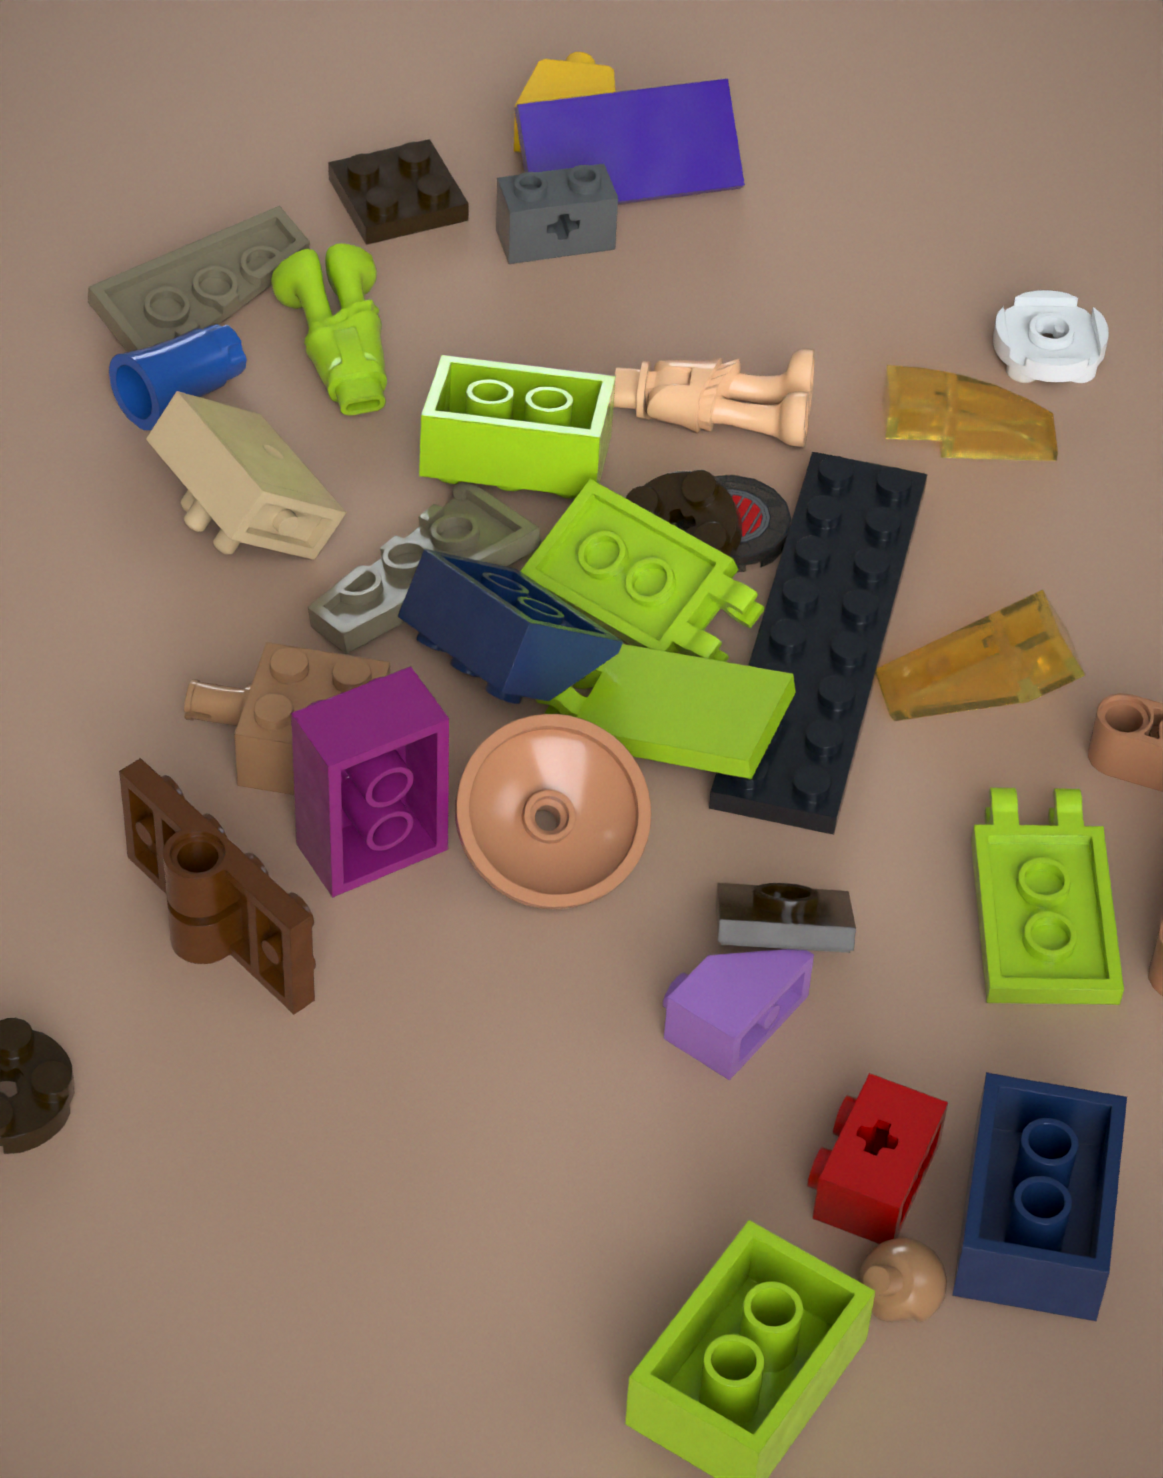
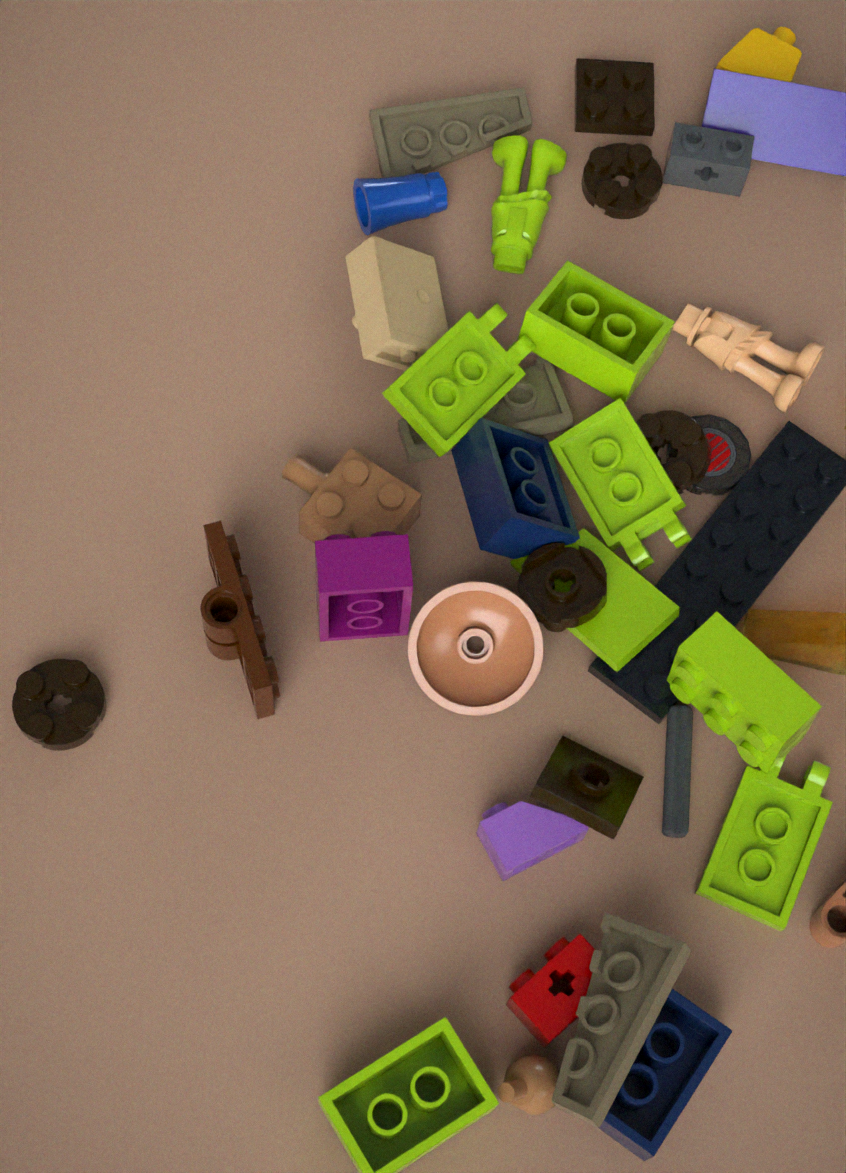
camera: 20 degrees right, 20 degrees up
(368, 526) = (458, 380): none -> lime tile
(432, 269) = (622, 160): none -> dark brown plate
(641, 726) = (569, 608): none -> dark brown plate
(889, 871) = (677, 772): none -> dark grey axle
(926, 724) = (741, 693): none -> lime brick
(971, 1123) = (624, 997): none -> dark tan wing

